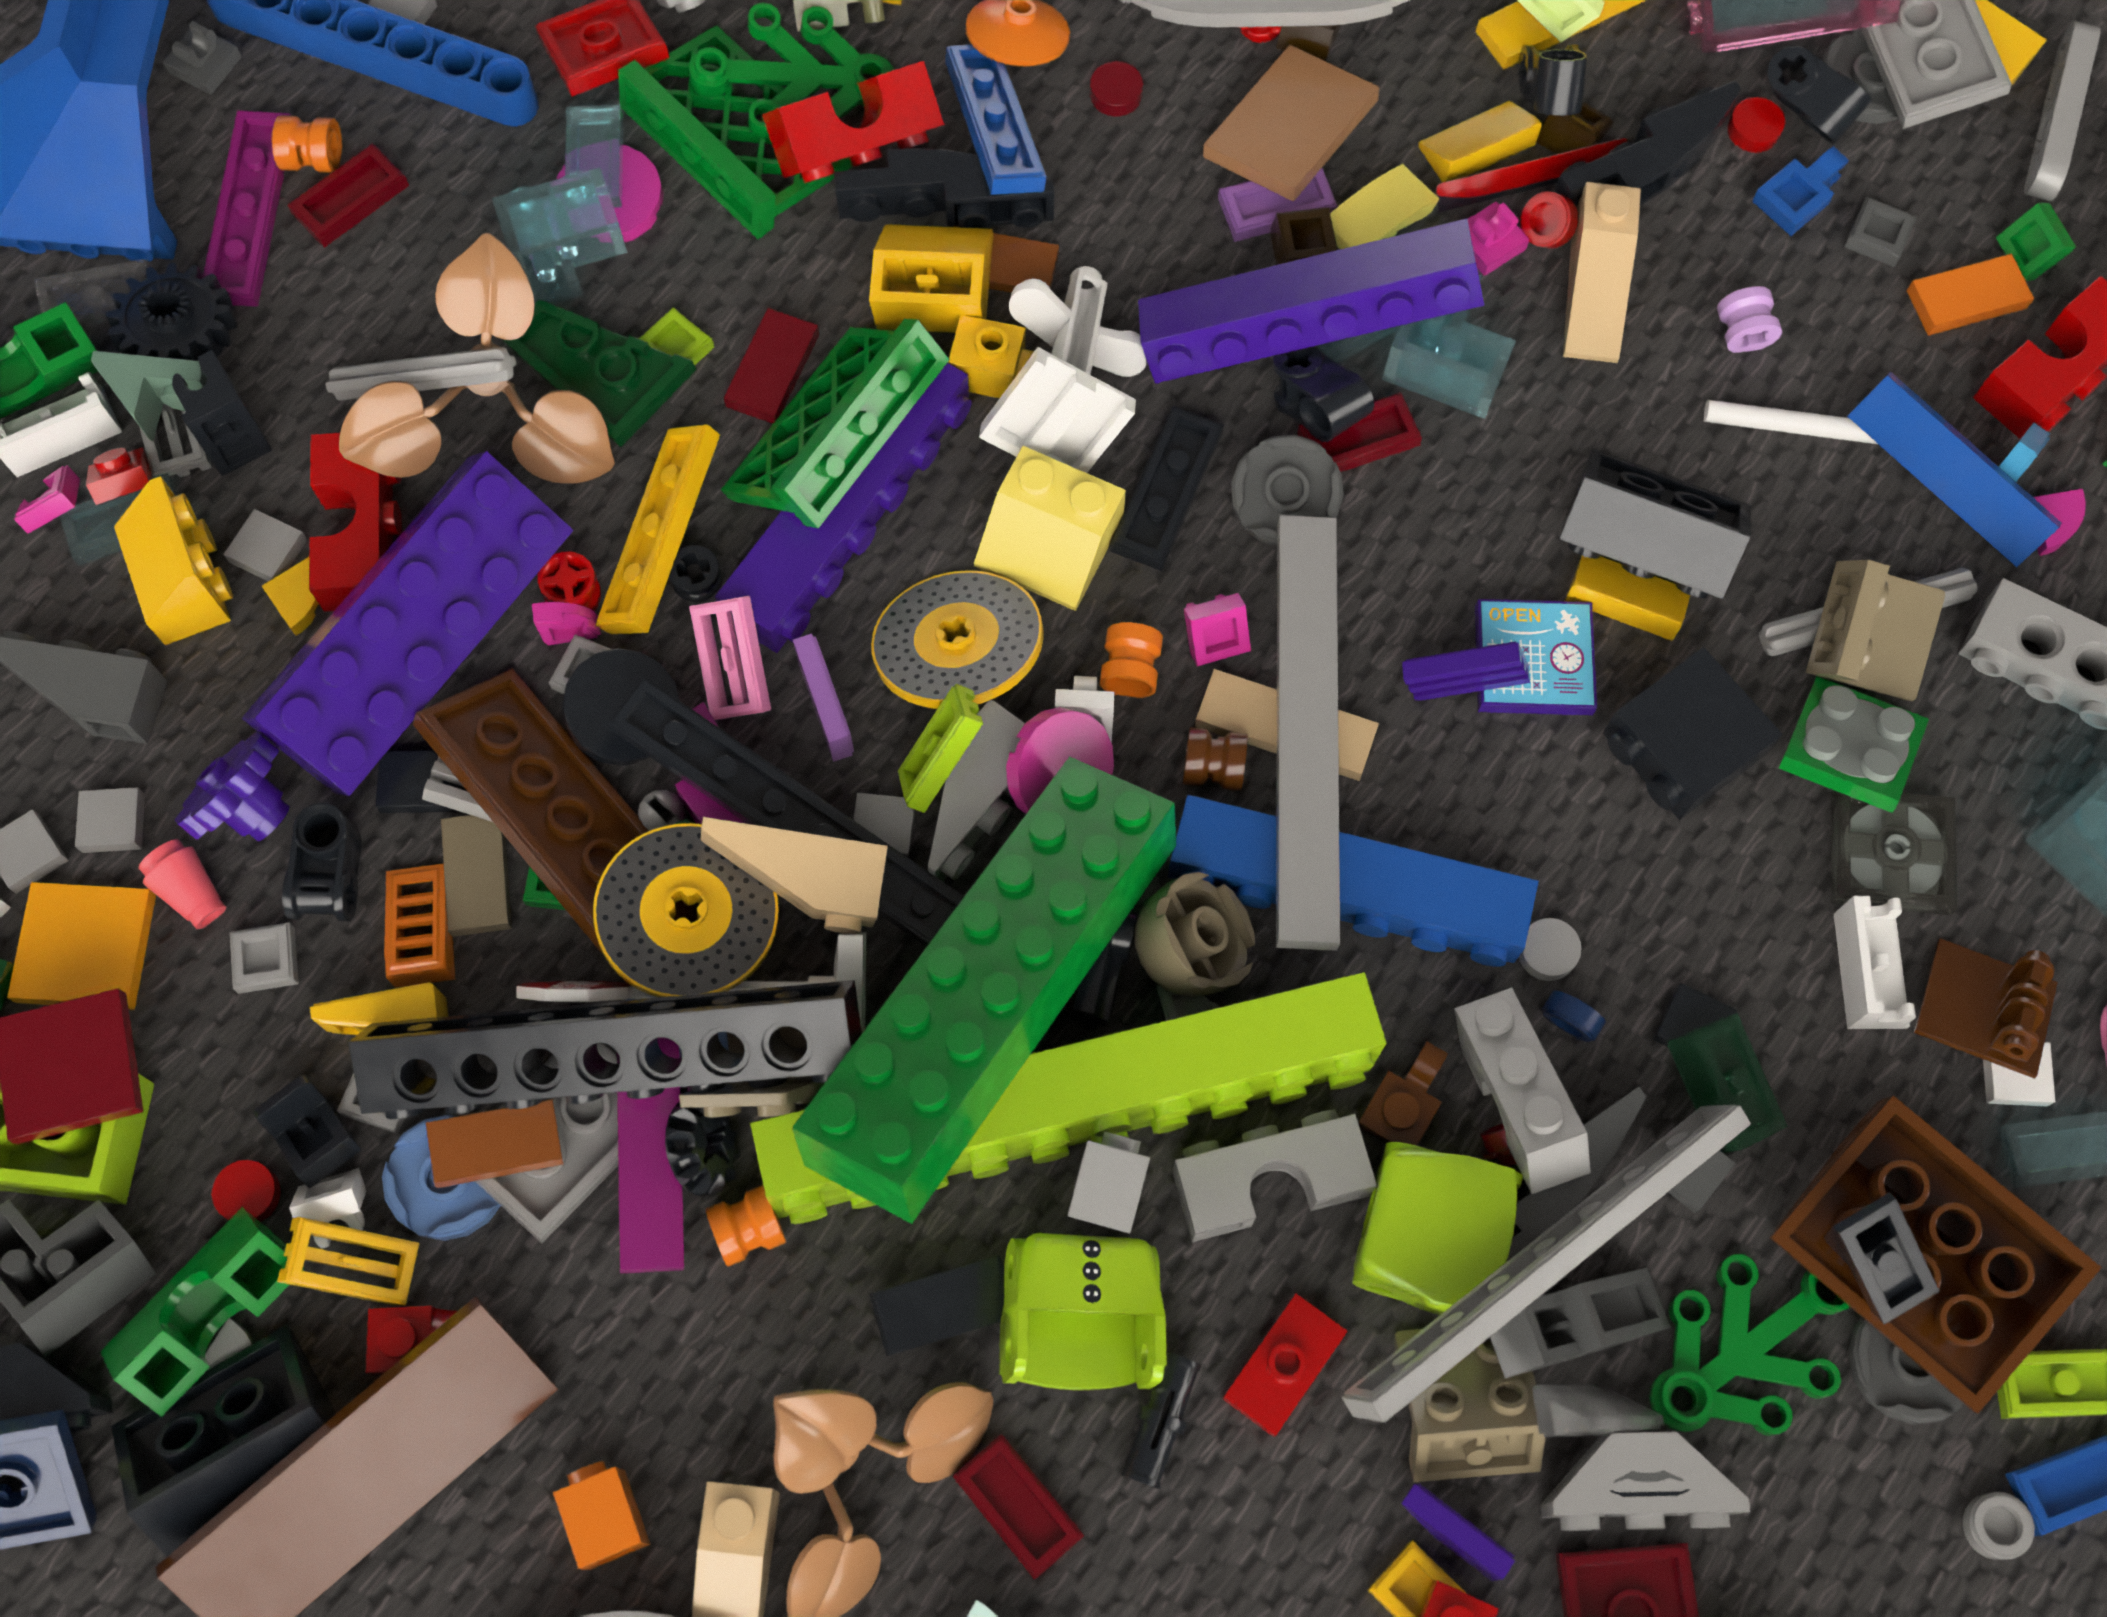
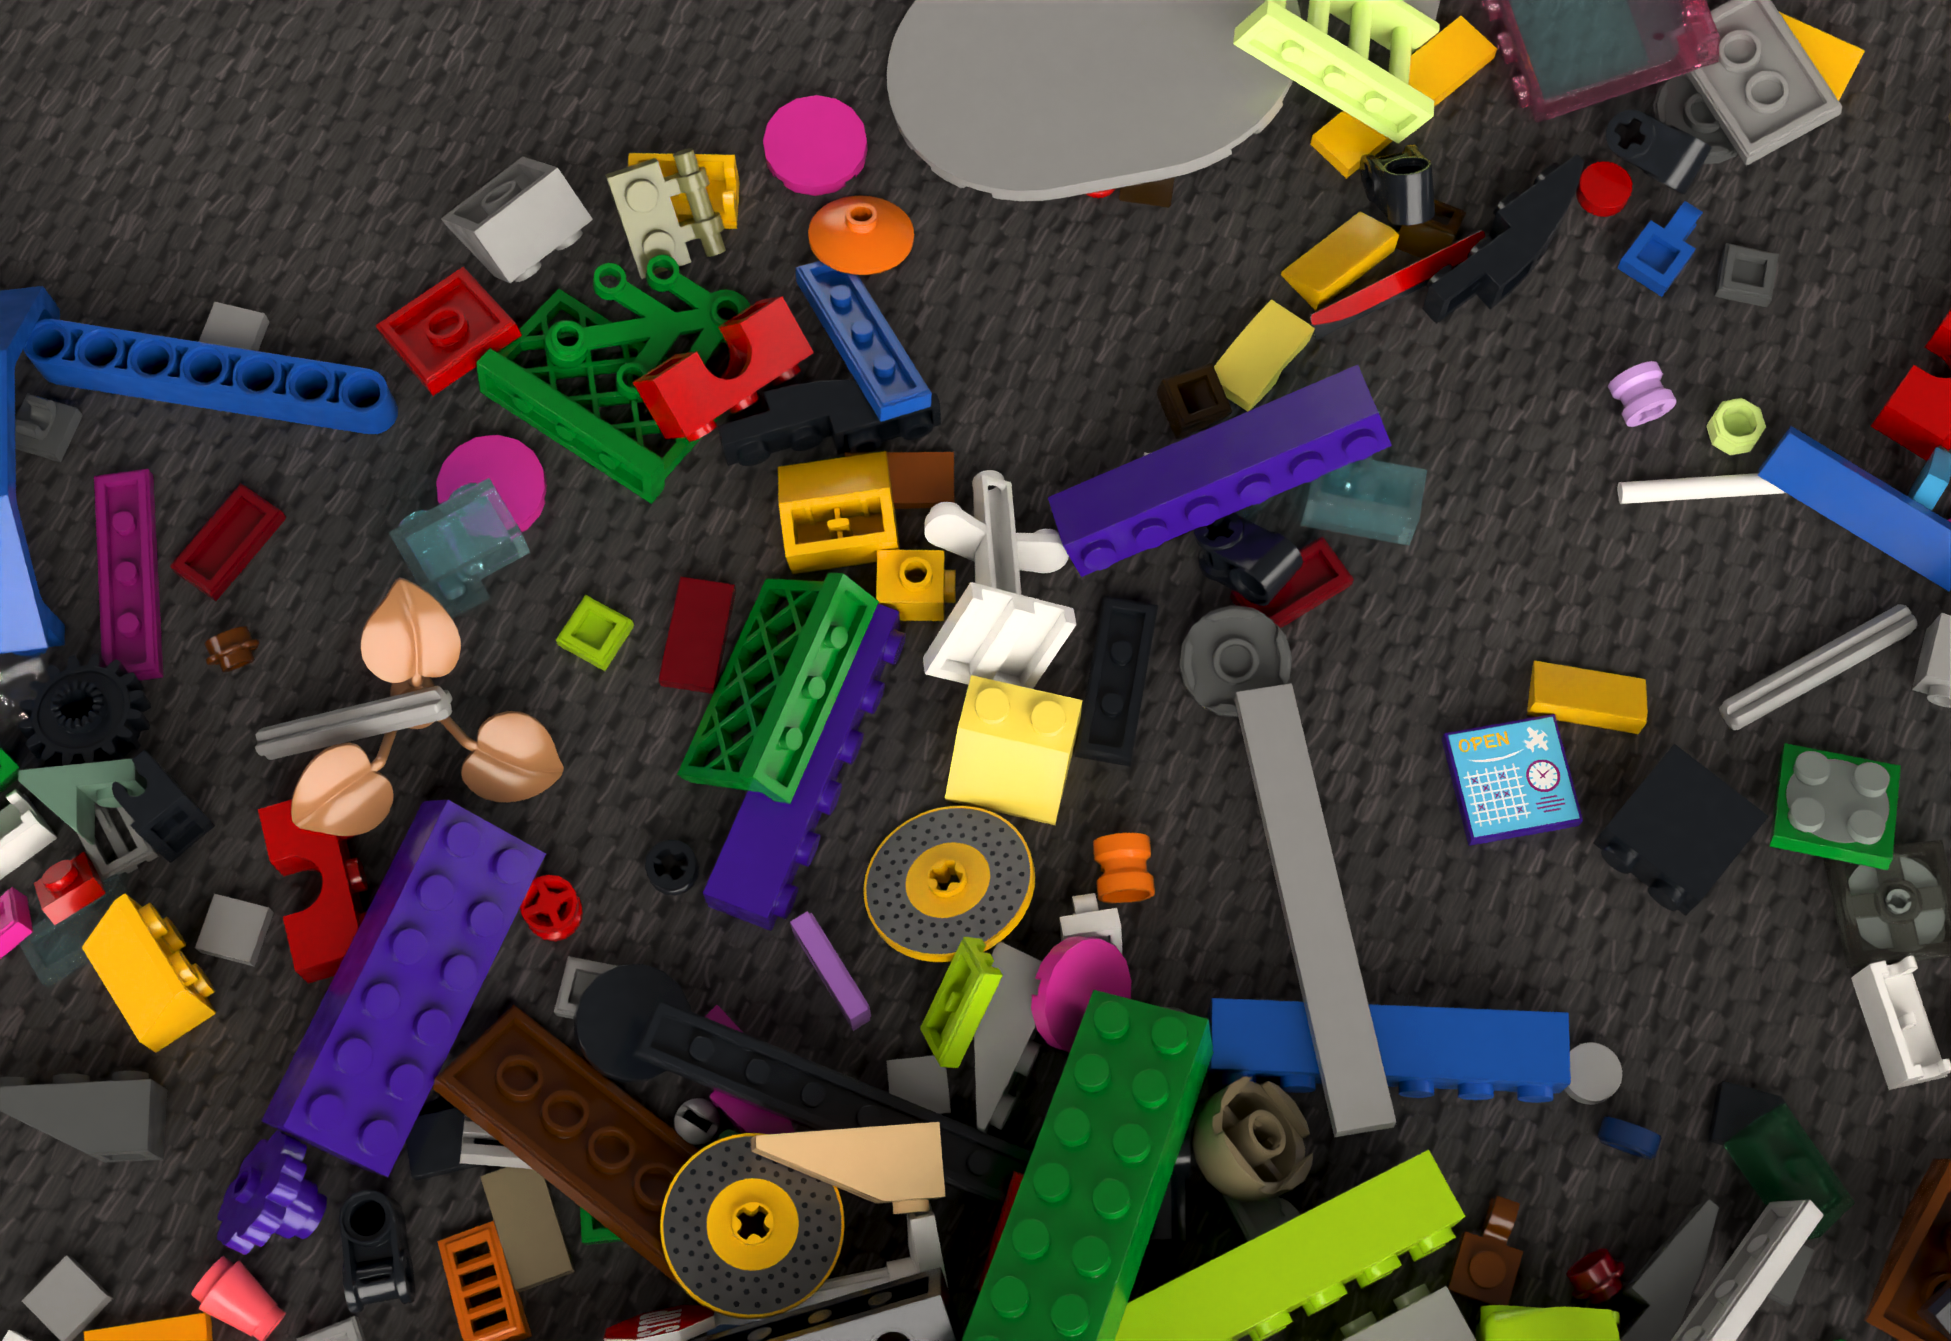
camera: 10 degrees left, 0 degrees up
(110, 820) = (146, 1248): light grey tile -> none
(292, 596) = (275, 974): yellow tile -> none
(306, 143) = (175, 498): orange wheel -> none
(326, 290) = (231, 649): none -> reddish brown plate
(561, 621) = (550, 950): dark pink tile -> none
(596, 141) = (469, 445): clear light blue tile -> none
(613, 371) = (533, 675): dark green wing -> none
(657, 530) = (626, 831): yellow tile -> none
(749, 653) = (750, 943): bright pink tile -> none
(1116, 88) = (972, 275): dark red tile -> none
(1217, 629) = (1199, 817): dark pink tile -> none
(1217, 759) = (1234, 951): reddish brown wheel -> none
(1251, 709) = (1251, 898): tan tile -> none
(1253, 208) = (1140, 367): medium lavender tile -> none
(1291, 122) = (1153, 279): medium nougat tile -> none
(1466, 671) = (1451, 813): dark purple tile -> none
(1496, 237) = (1376, 354): dark pink tile -> none
(1534, 1107) = (1615, 1242): light grey arch -> none
(1549, 219) = (1427, 331): red tile -> none
(1601, 271) = (1488, 373): tan slope -> none
(1657, 525) = (1600, 621): slope -> none
(1836, 369) = (1736, 426): none -> yellowish green tile
(1875, 630) = (1831, 689): dark tan bracket -> none
(1970, 294) = (1845, 322): orange tile -> none
(2036, 241) = (1897, 259): green tile -> none
(2063, 112) = (1894, 118): light grey beam -> none

